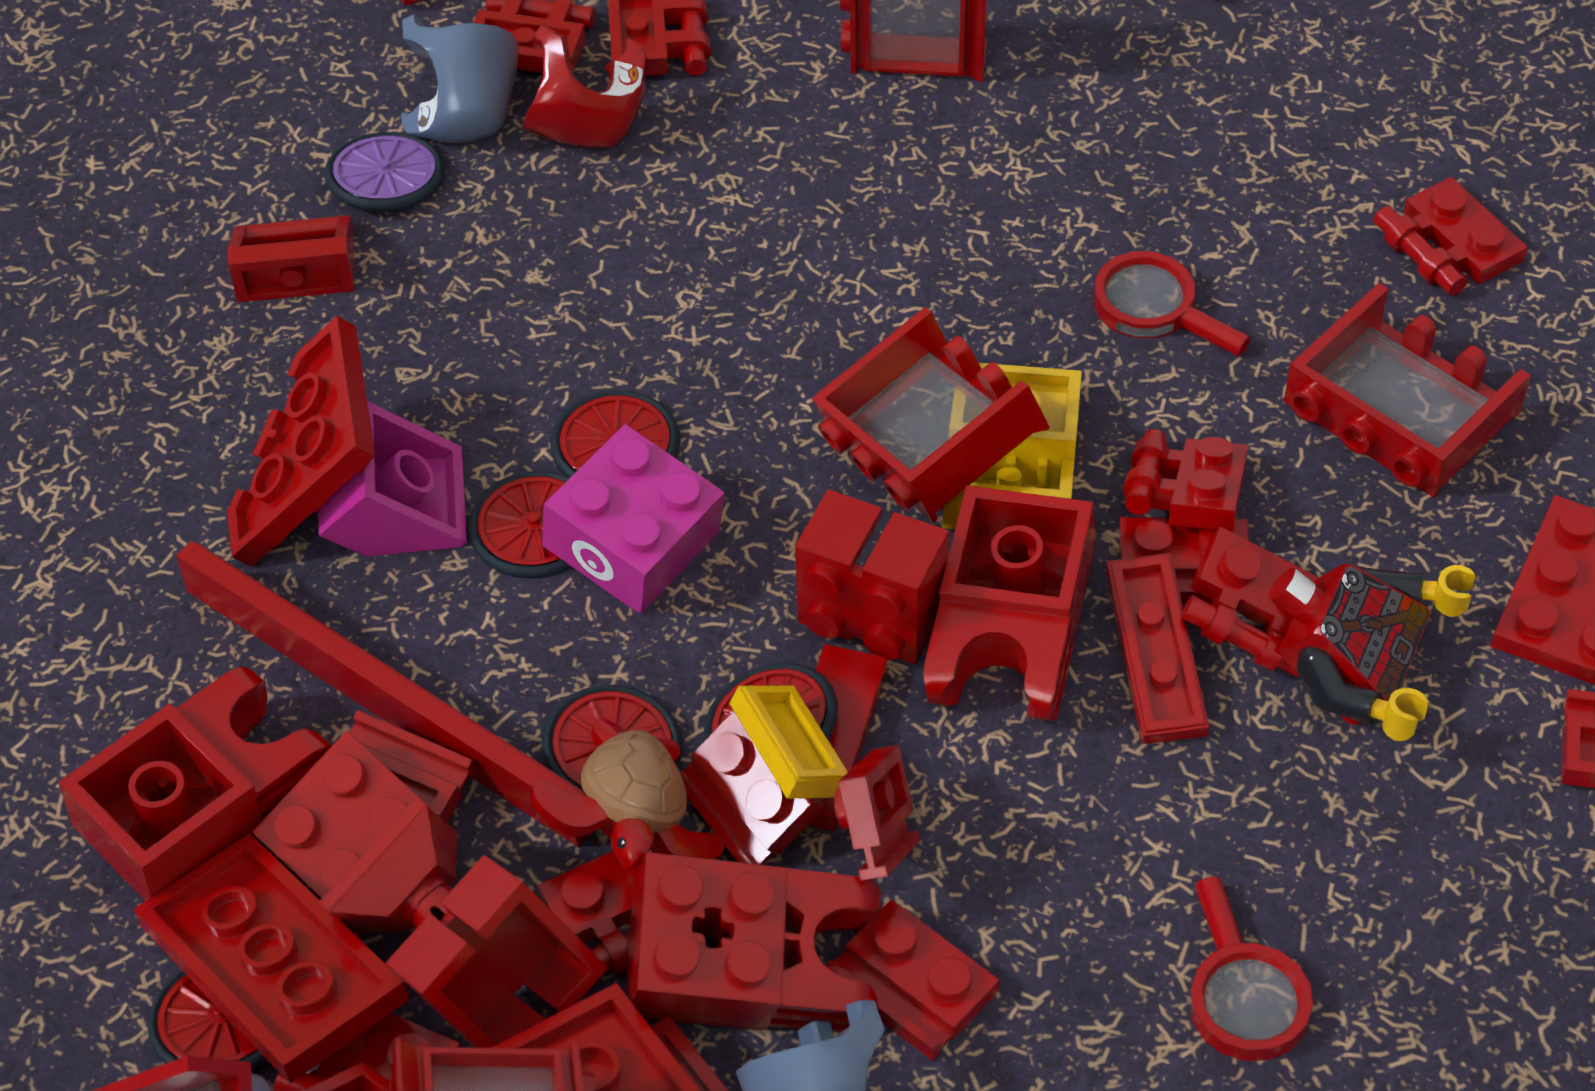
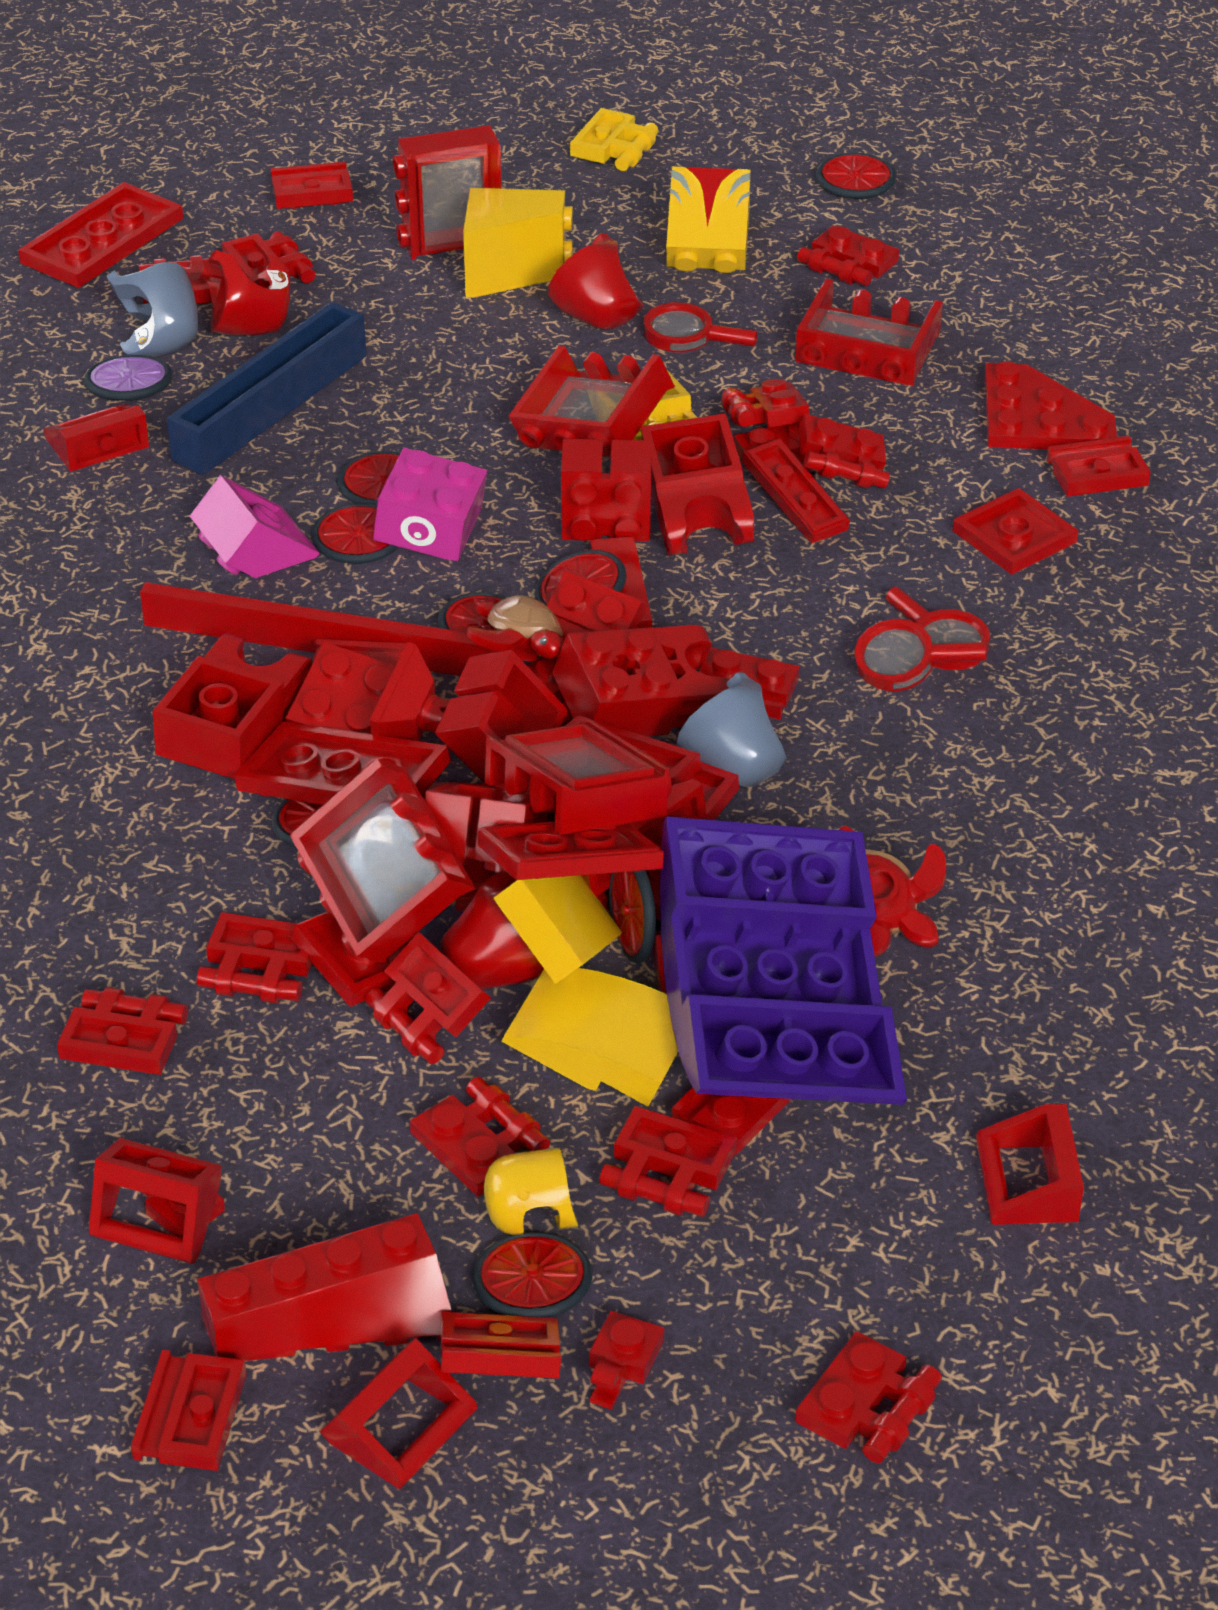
camera: 25 degrees left, 10 degrees down
(308, 446) = (194, 510): red plate -> none
(529, 250) = (266, 388): none -> dark blue brick
(789, 740) = (610, 575): yellow tile -> none
(875, 808) = (681, 588): red plate -> none
(974, 91) = (514, 238): none -> yellow slope
(1044, 208) = (595, 287): none -> red piece
(1154, 1012) = (901, 654): none -> piece
(1267, 129) = (708, 219): none -> yellow slope
(1359, 635) = (918, 447): torso -> none
(1450, 825) = (1015, 531): none -> red tile
(1533, 94) = (855, 175): none -> red wheel

